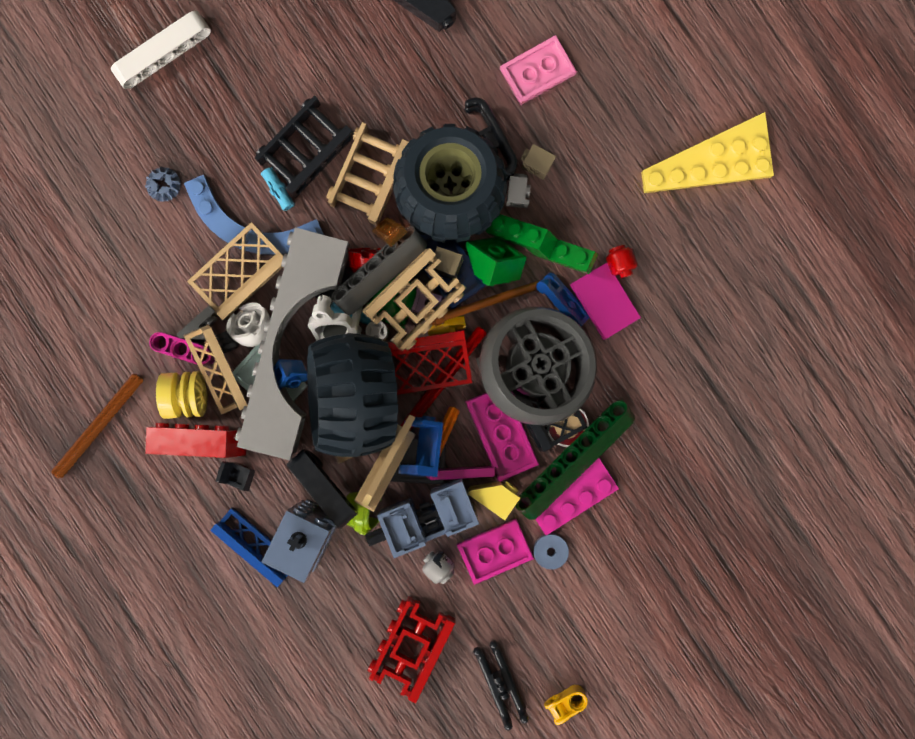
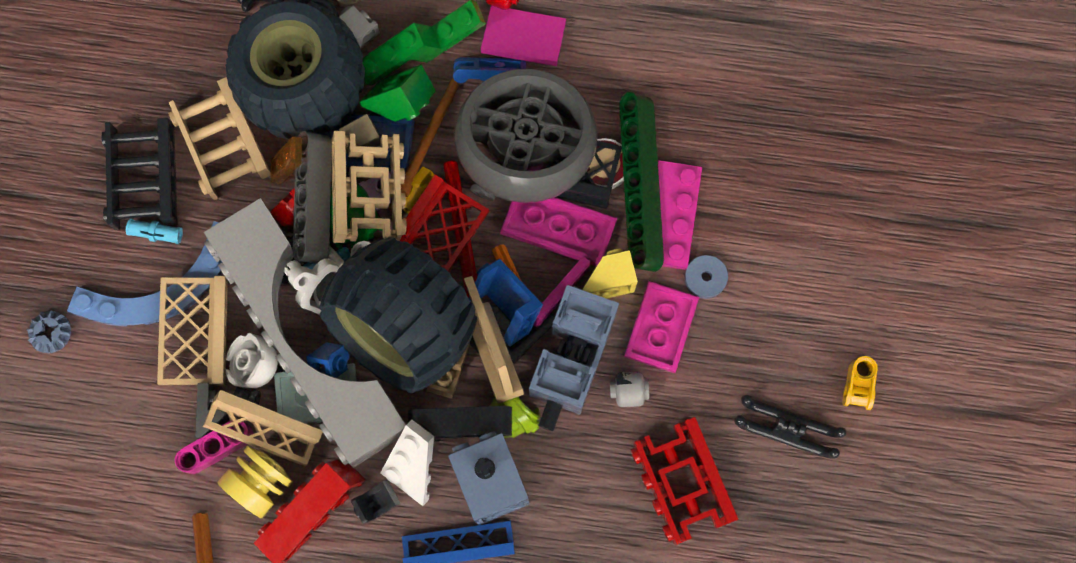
camera: 45 degrees left, 10 degrees down
(275, 477) = (410, 462): none -> white wing

